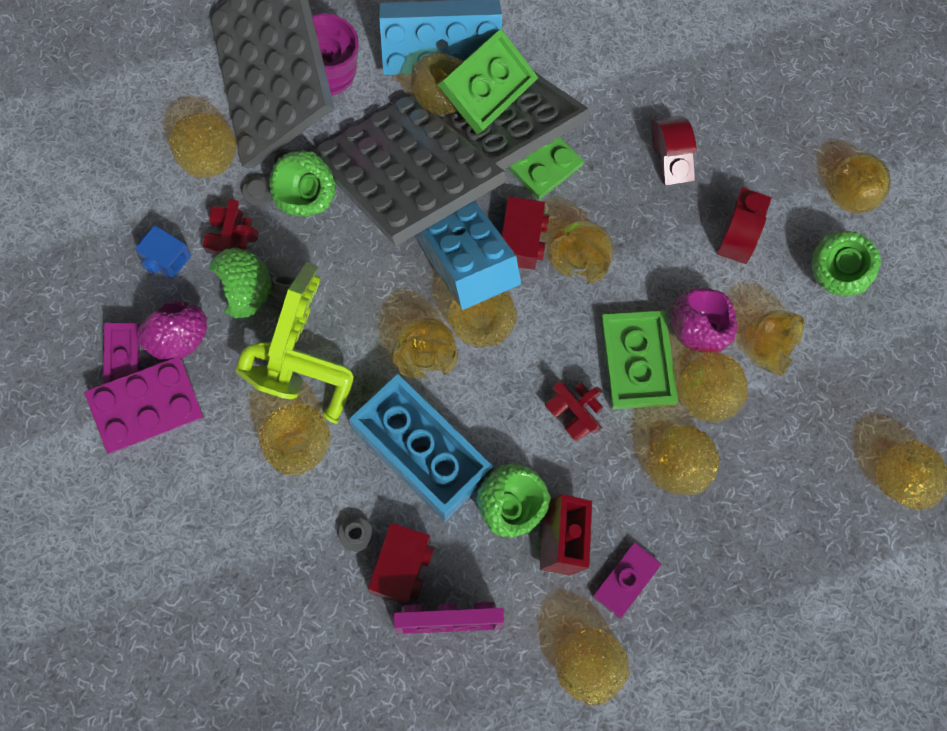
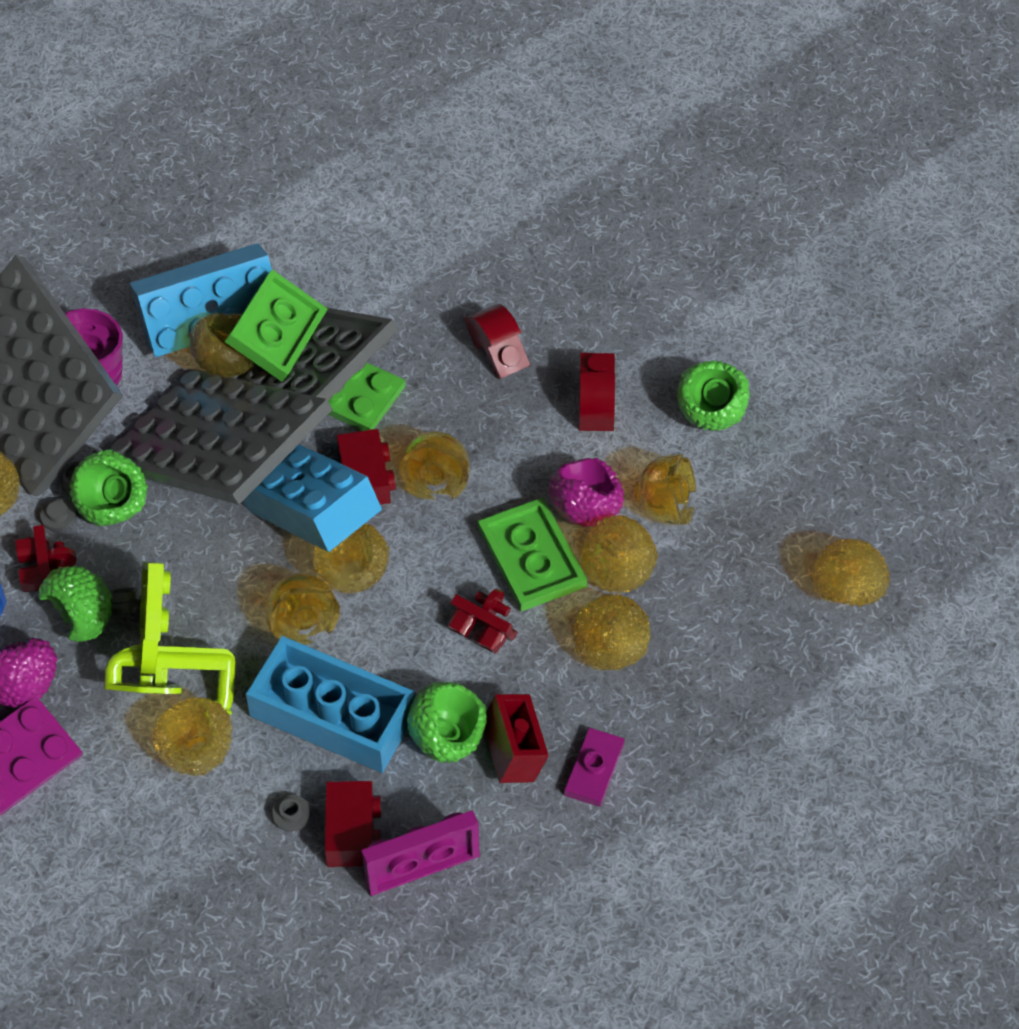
camera: 15 degrees left, 15 degrees down
(591, 666) = (584, 850): clear yellow hair -> none
(859, 183) = (703, 316): clear yellow cylinder -> none

